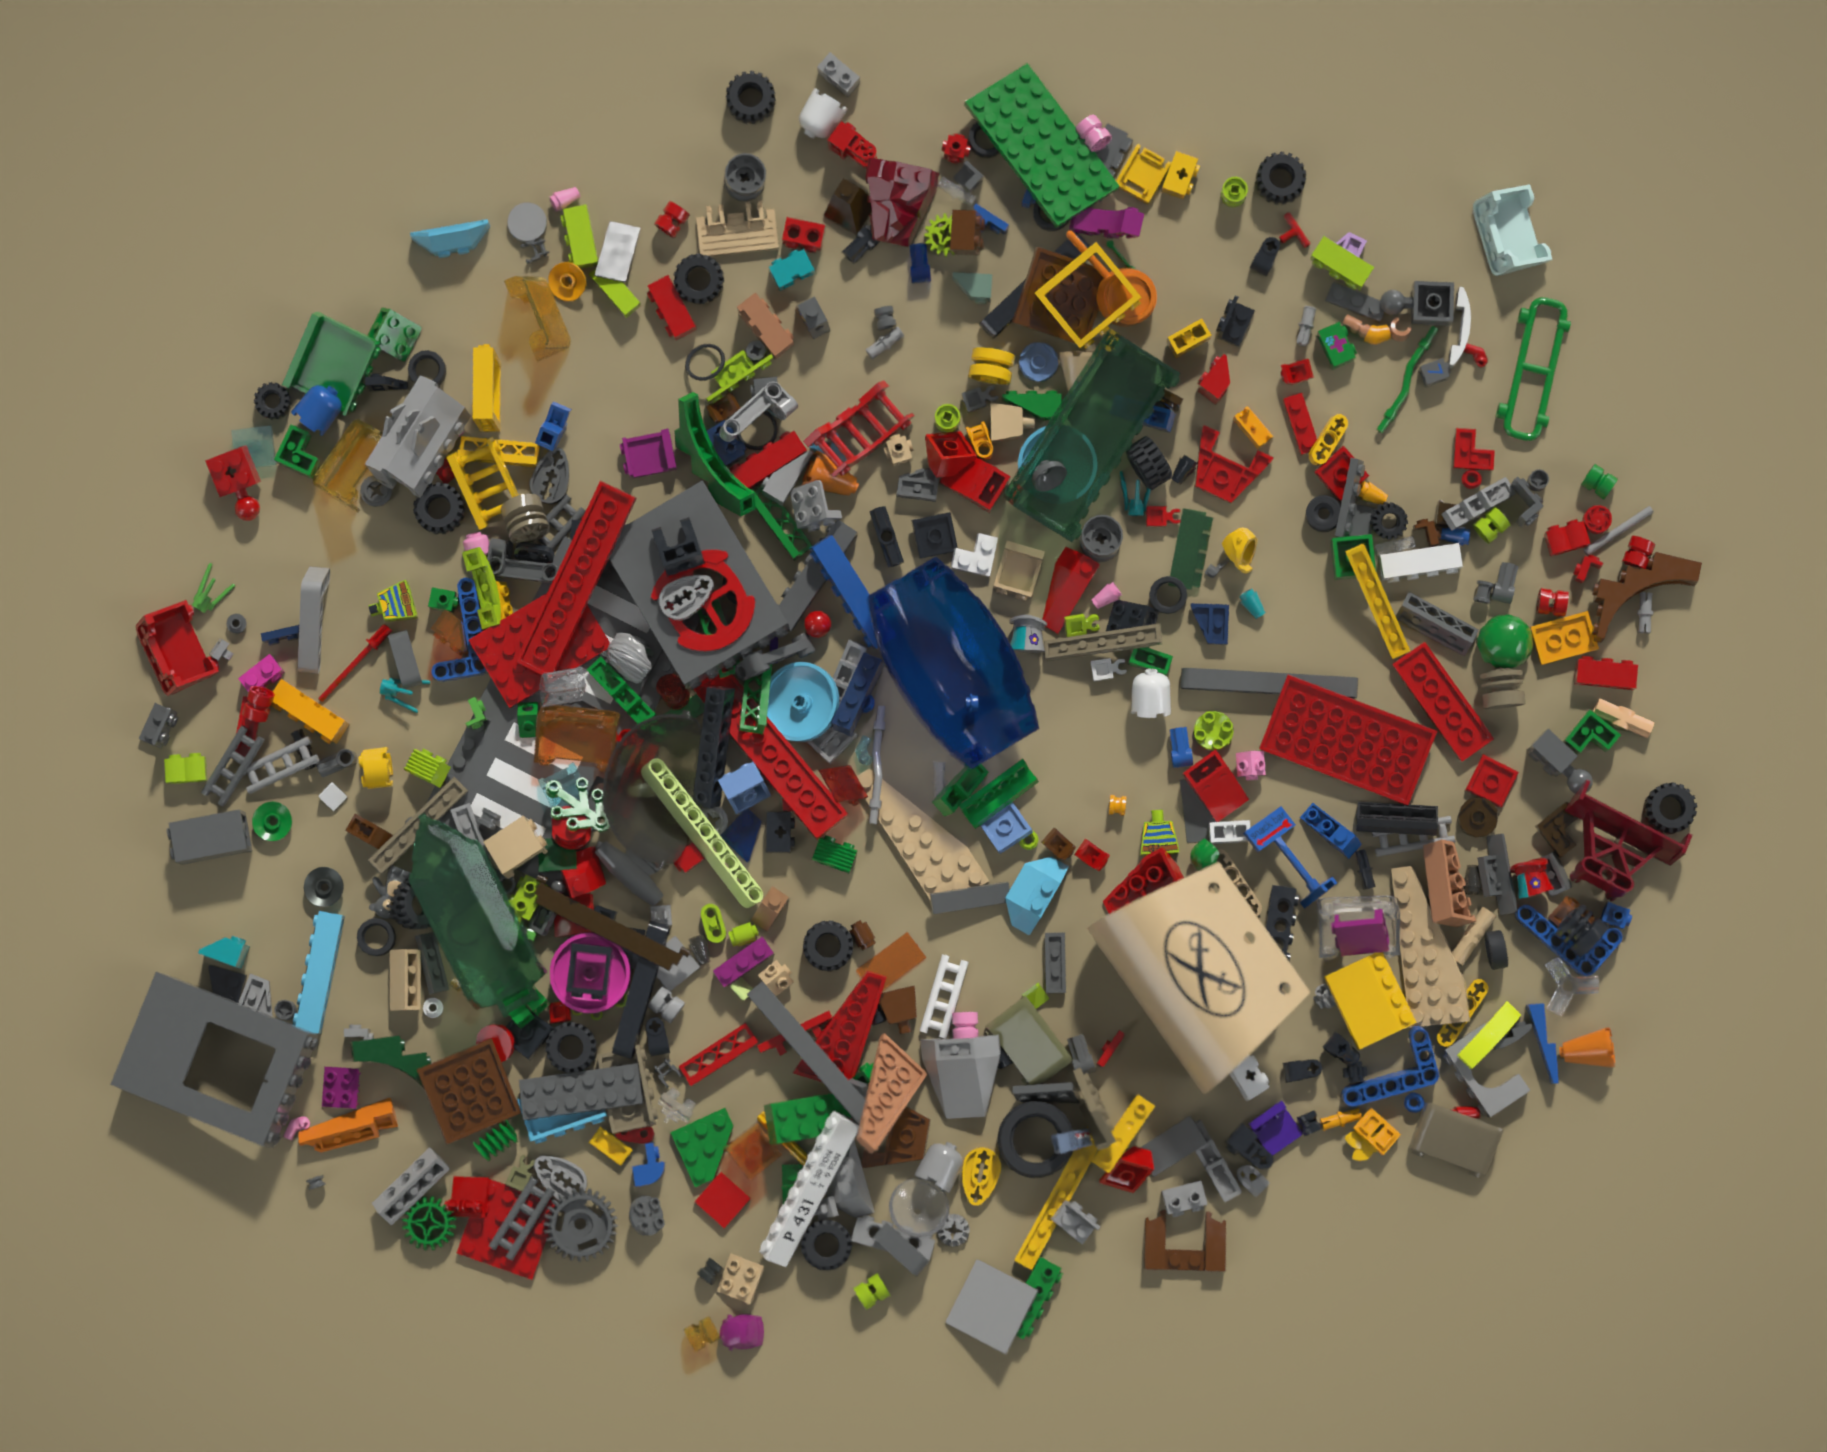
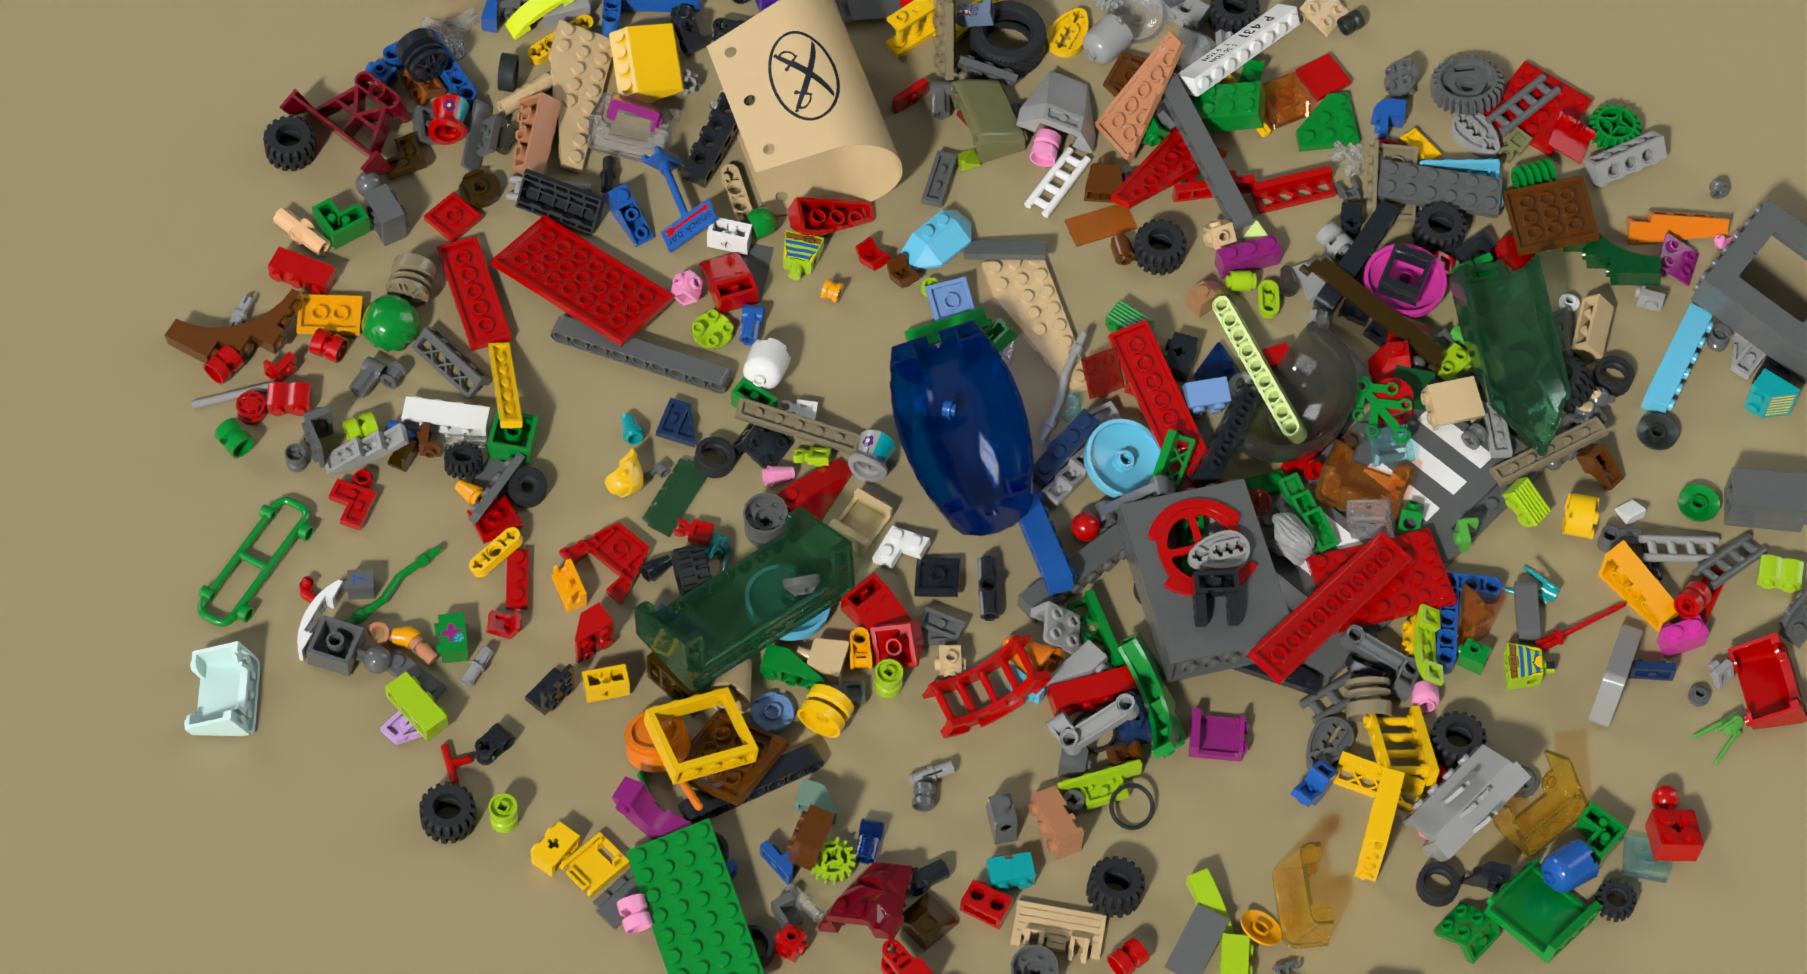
camera: 170 degrees left, 25 degrees down
(671, 308) = (1150, 857): red brick -> none

